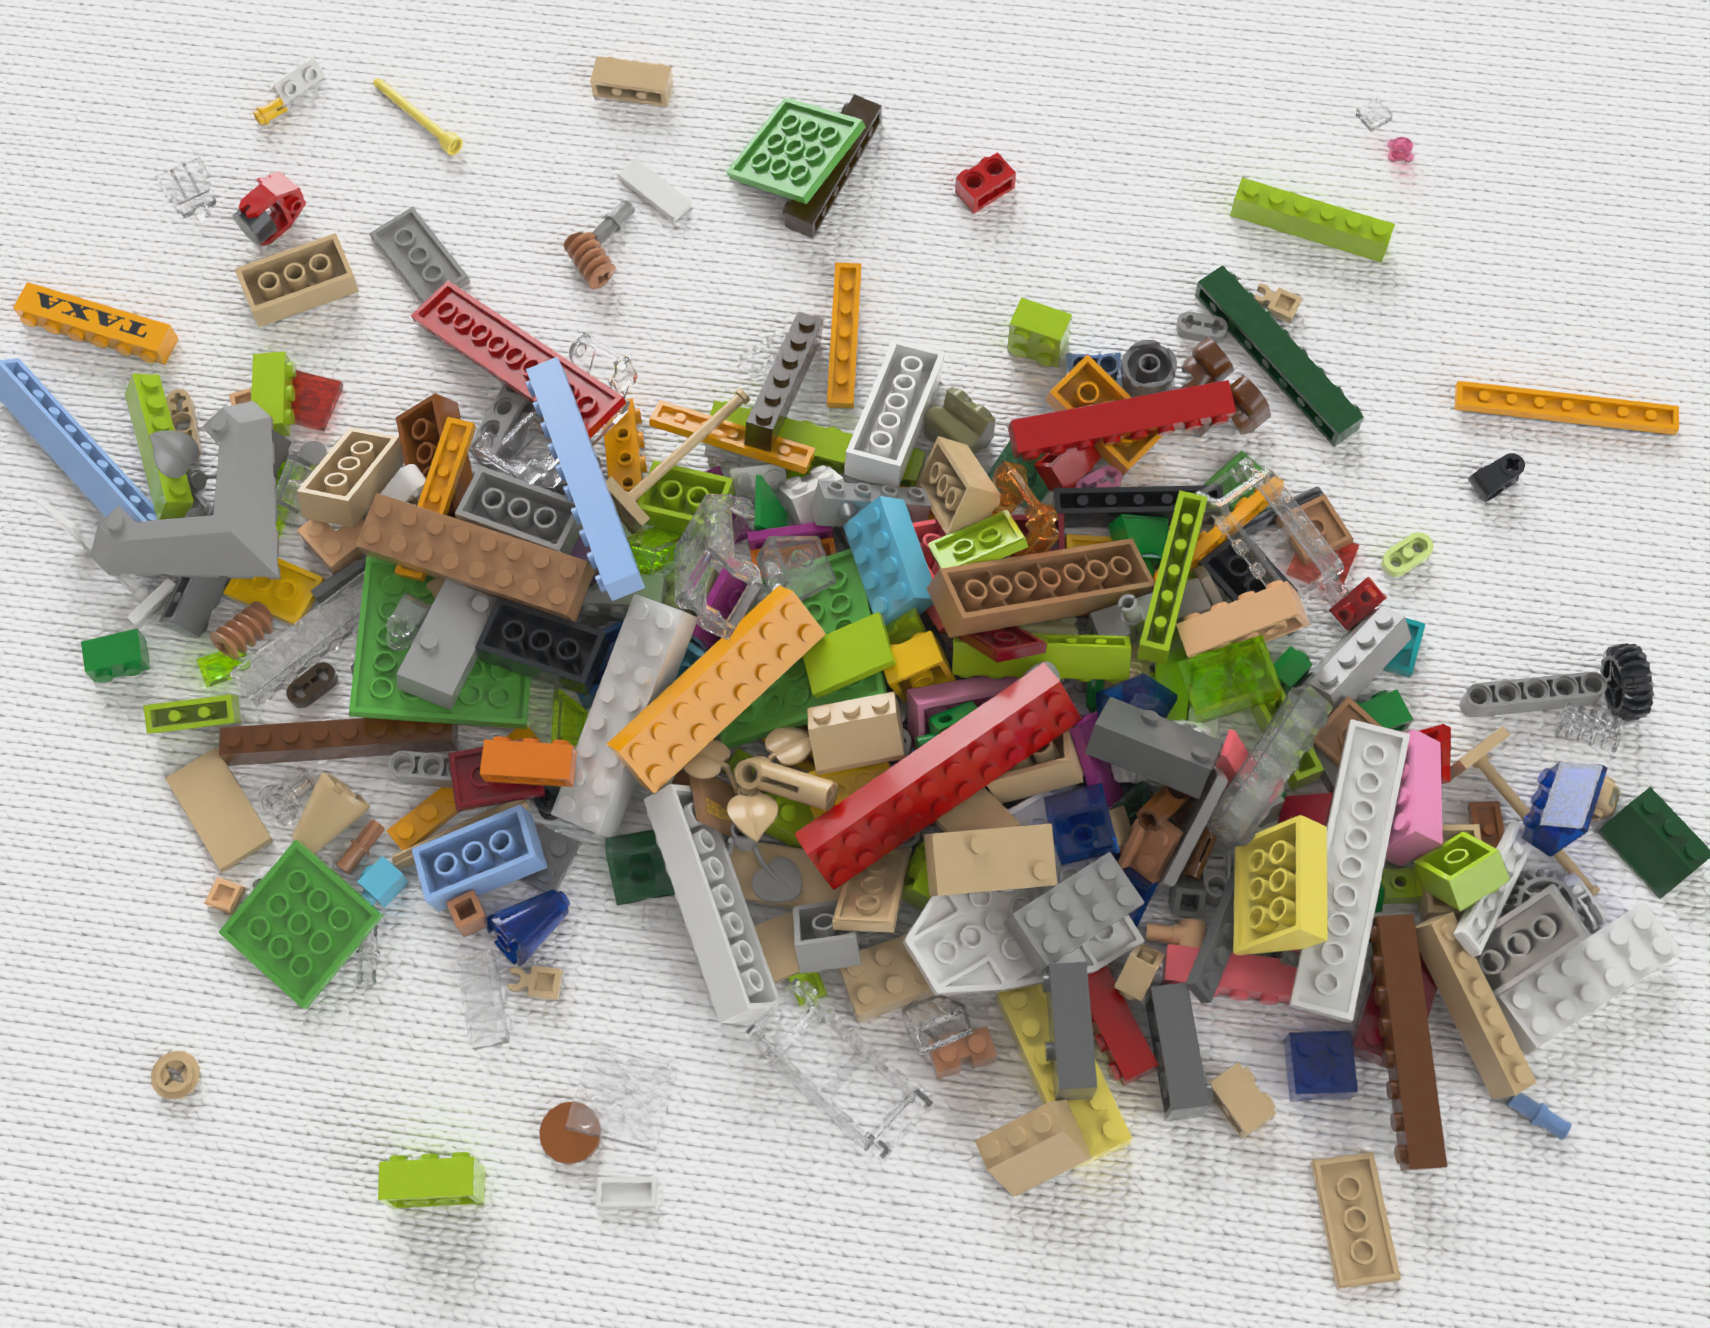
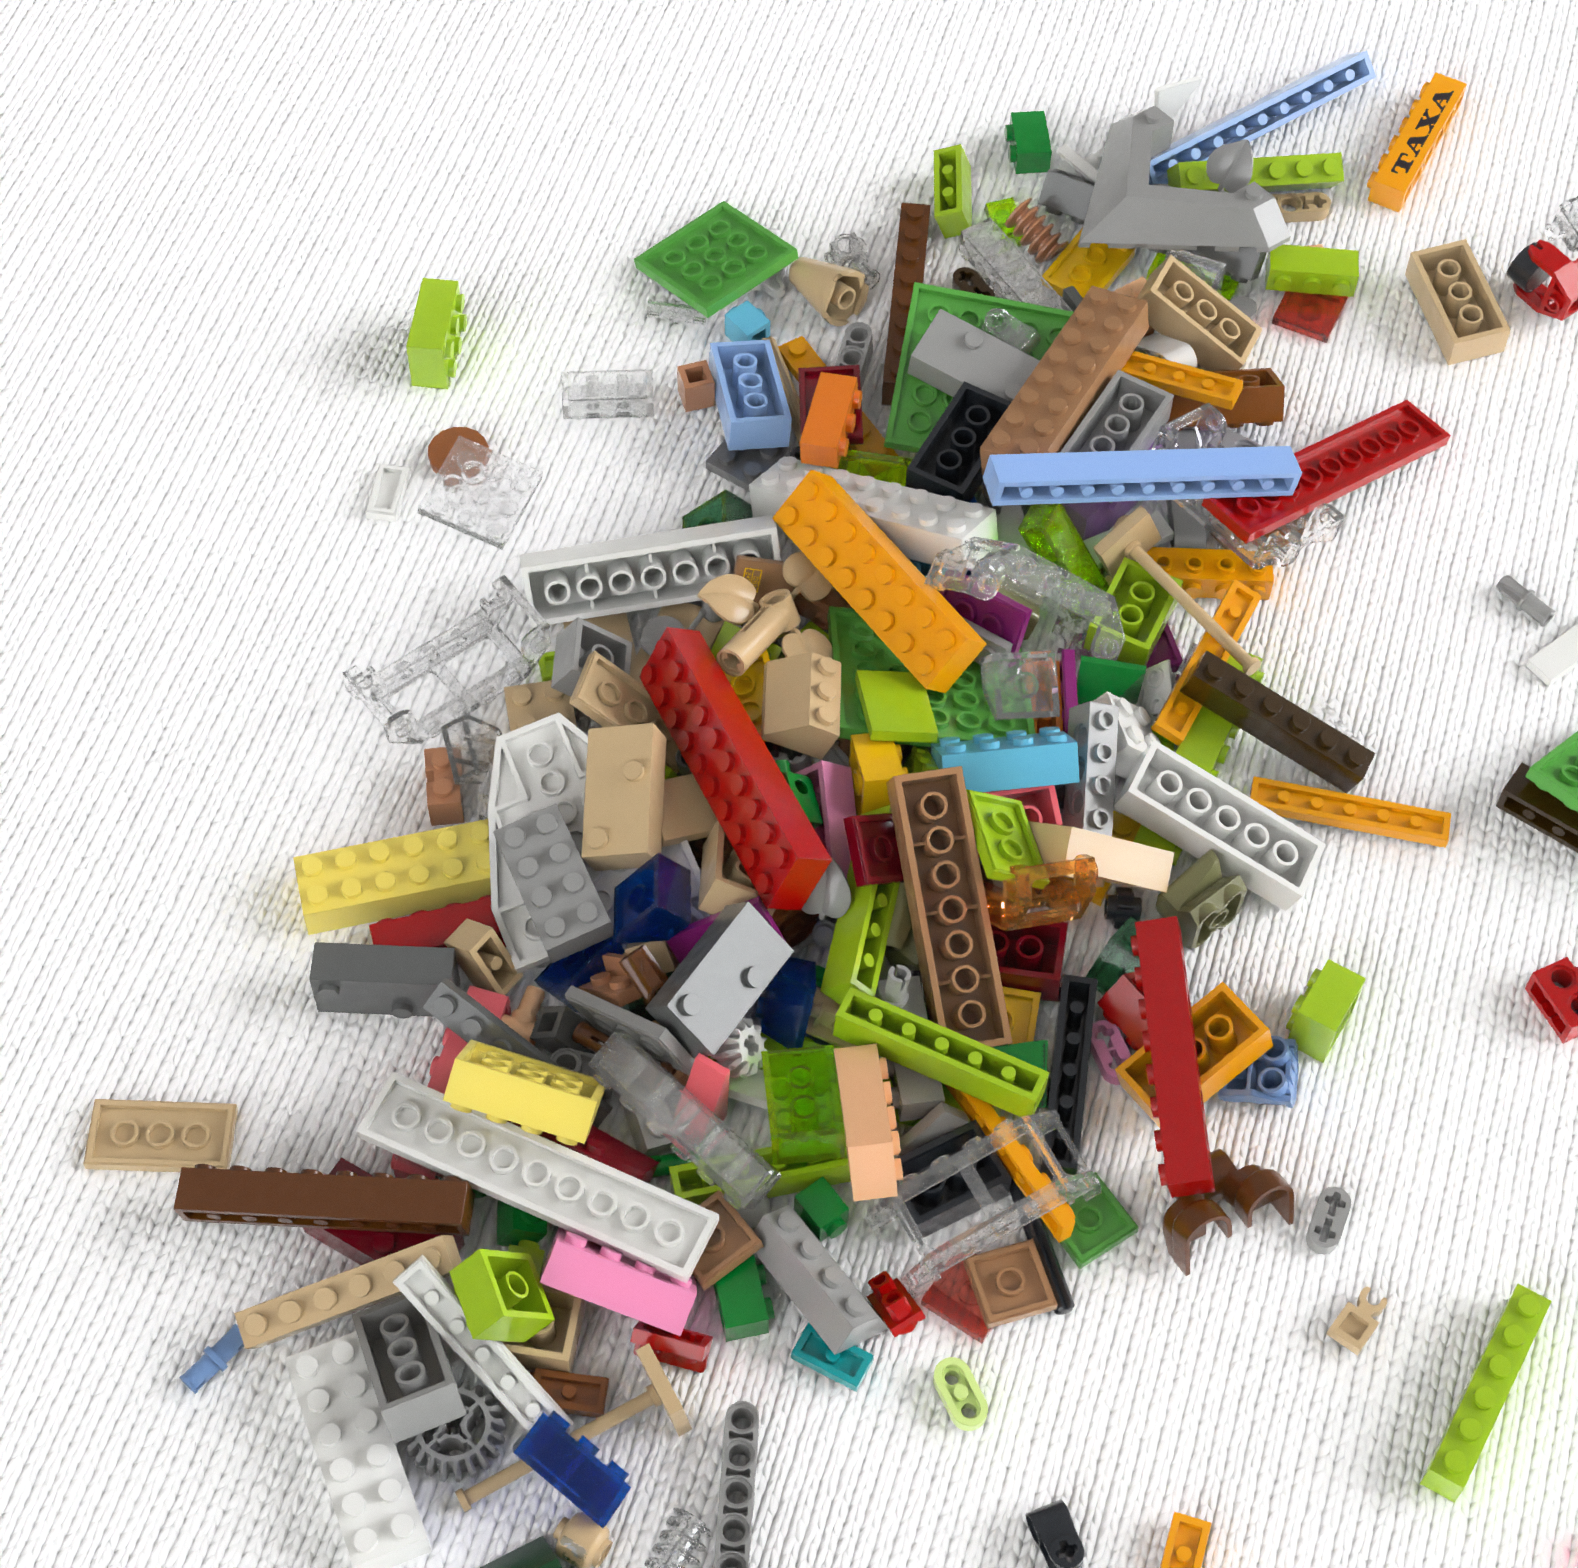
camera: 95 degrees right, 10 degrees down
(162, 1075) = (597, 161): tan gear -> none
(219, 810) = (859, 209): tan tile -> none
(225, 896) = (764, 212): light nougat tile -> none
(360, 846) = (788, 314): nougat axle -> none
(418, 254) = (1491, 418): light grey tile -> none
(527, 924) = (672, 430): clear blue cone -> none
(541, 983) = (615, 442): tan plate -> none
(589, 258) = (1470, 567): nougat piece -> none
(1034, 1148) = (322, 821): tan slope -> none
(1070, 1031) = (421, 852): dark grey brick -> none
(1148, 368) = (1260, 1129): flat silver brick -> none
(1242, 1100) = (319, 1043): tan brick -> none
(1279, 356) = (1273, 1301): dark green brick -> none
(1320, 1065) = (328, 1129): clear blue brick -> none
(1592, 911) = (433, 1488): white piece -> none

